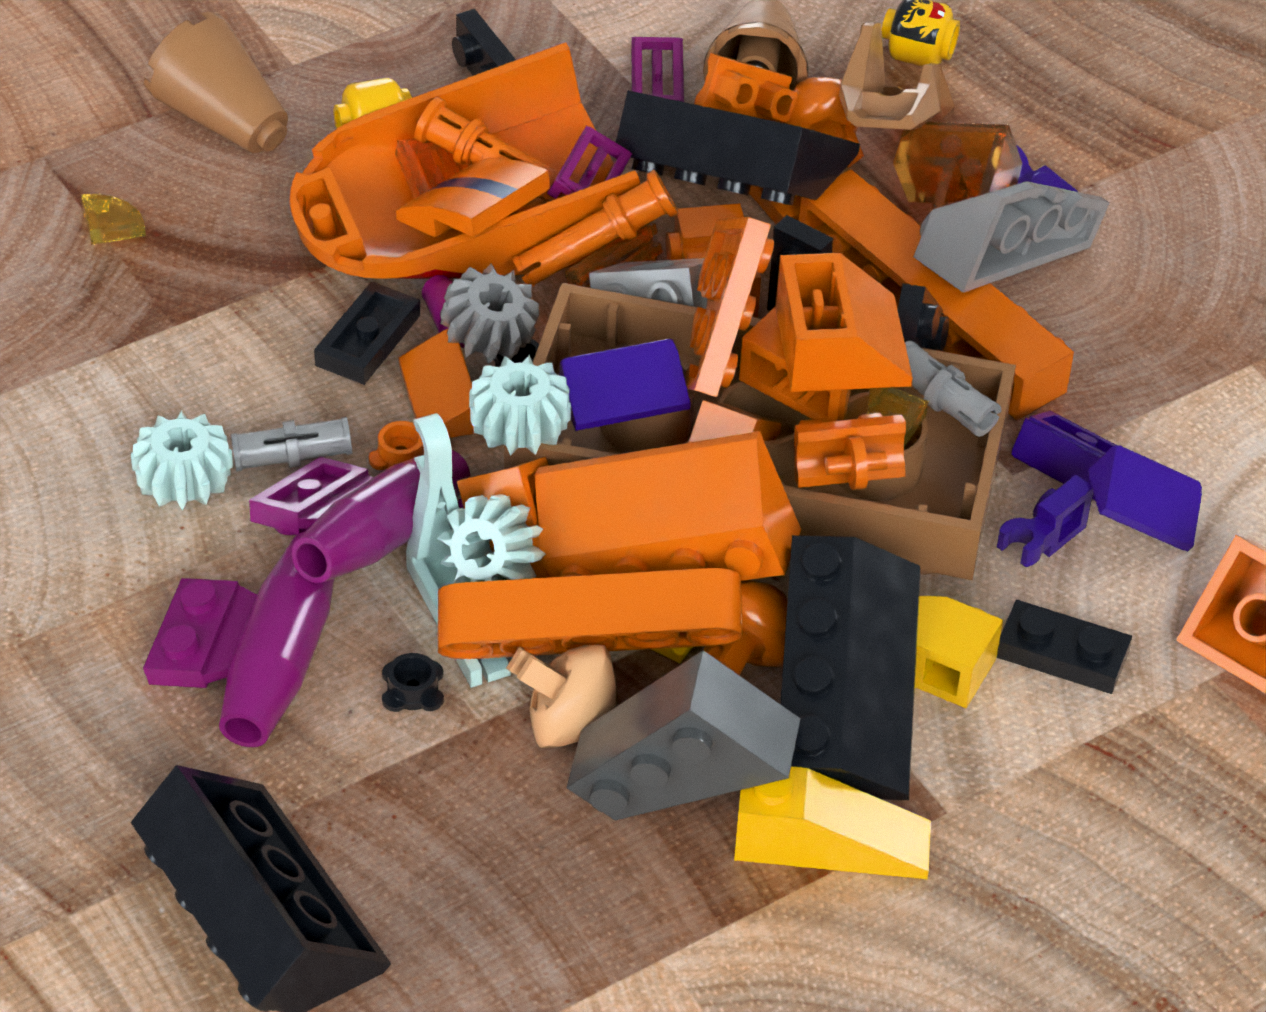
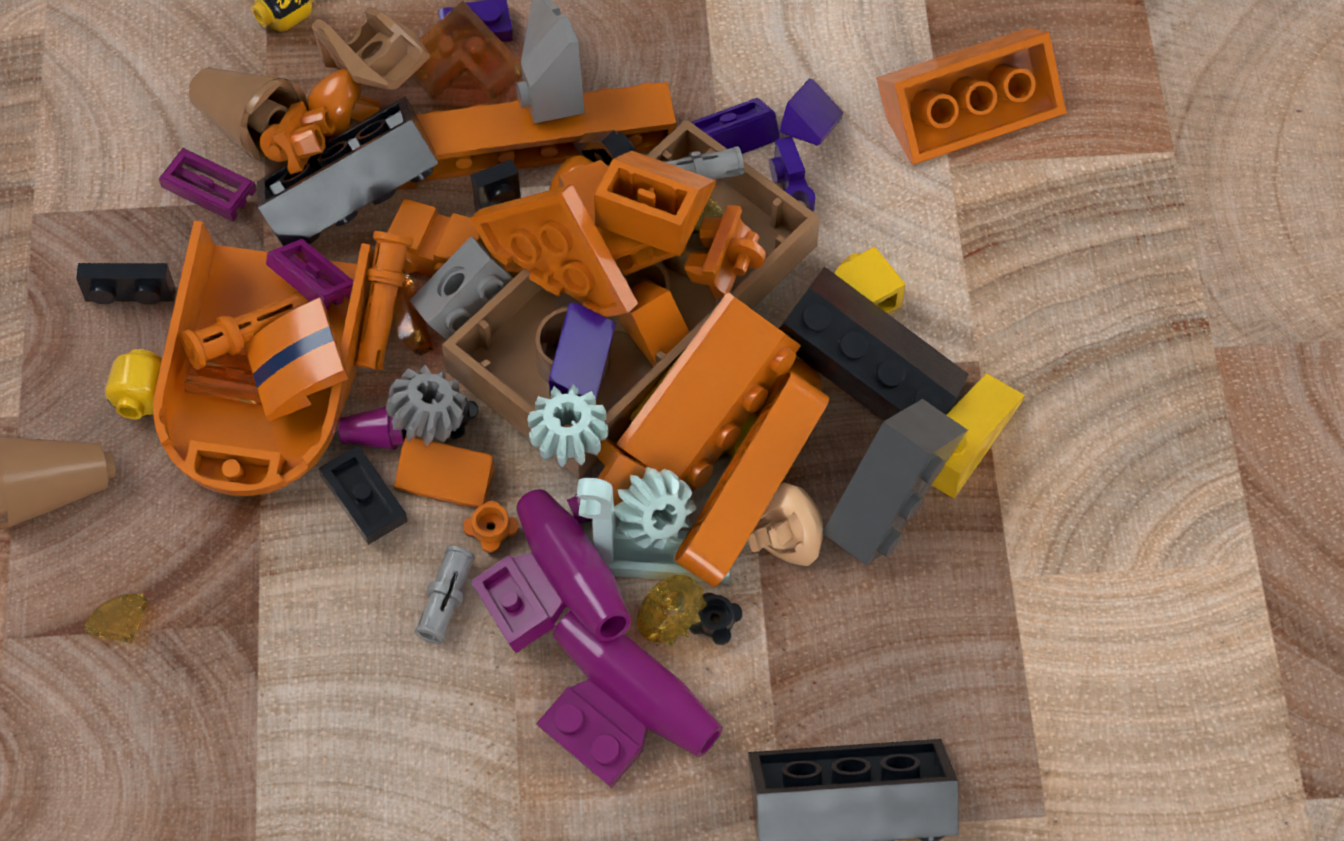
camera: 60 degrees left, 15 degrees up
(181, 460) = (403, 673): light aqua gear -> none
(389, 632) = (669, 594): none -> clear yellow gear
(1064, 646) = (888, 223): black plate -> none

